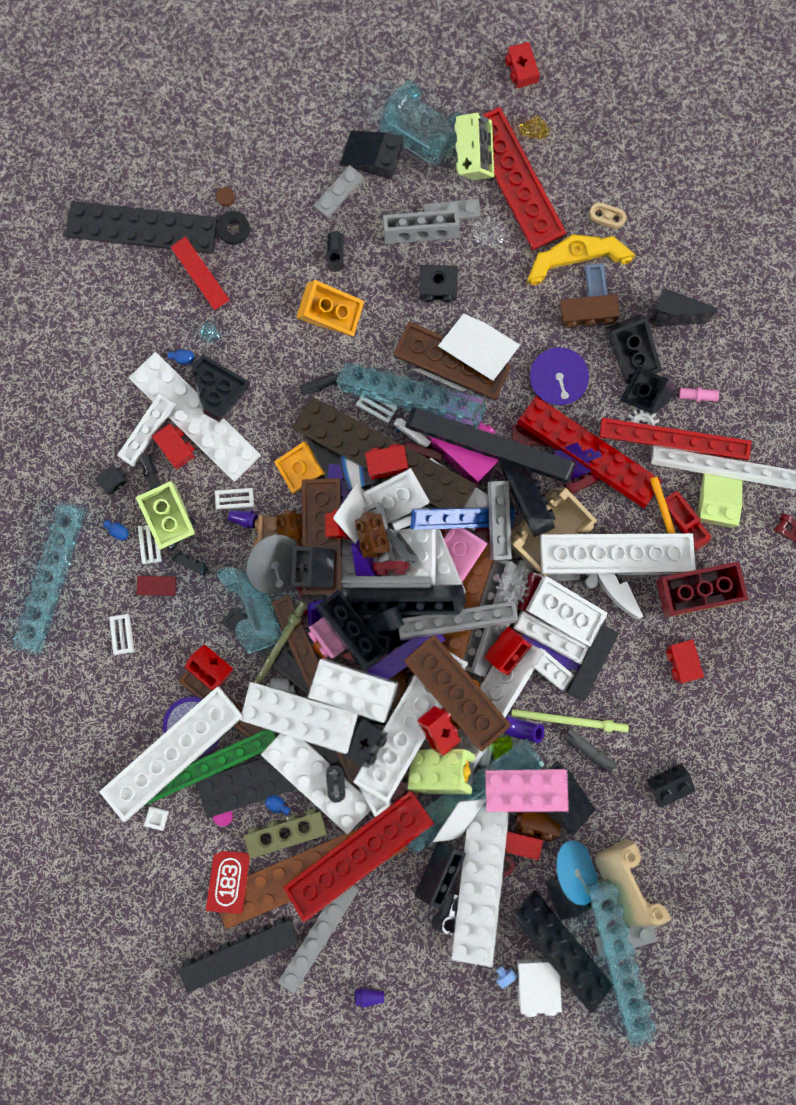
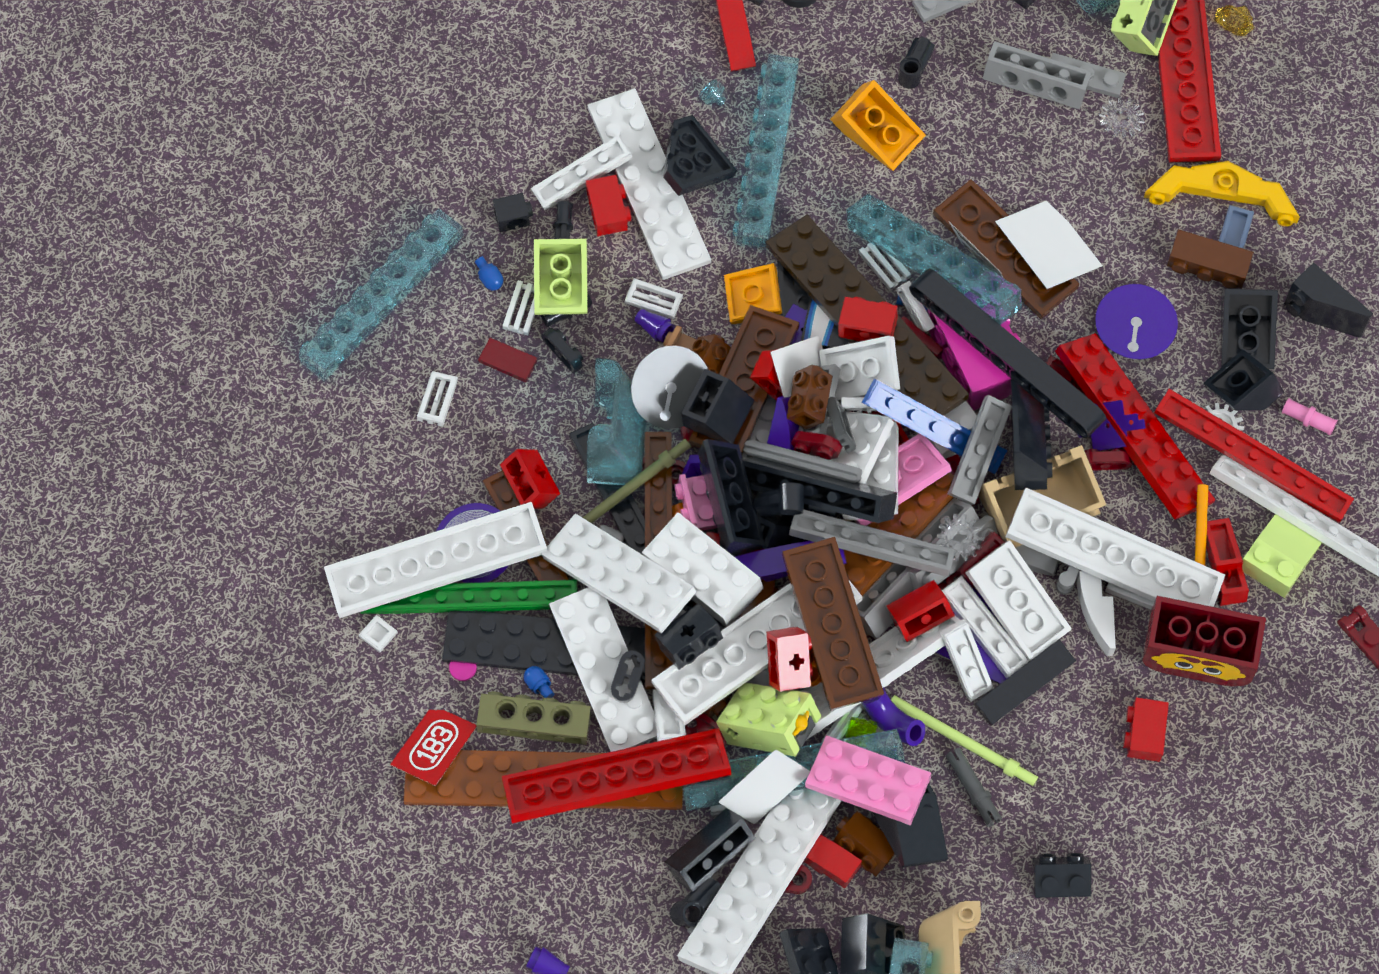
camera: 20 degrees right, 15 degrees down
(182, 356) = (665, 107): blue cylinder -> none
(238, 954) = (406, 837): black brick -> none
(251, 296) = (785, 71): none -> clear light blue brick
(316, 940) = (517, 863): light grey plate -> none
(317, 384) = (821, 207): black axle -> none
(442, 292) = (1032, 162): black brick -> none
(575, 871) = (885, 915): dark azure piece -> none
(608, 213) = (1286, 157): tan plate -> none

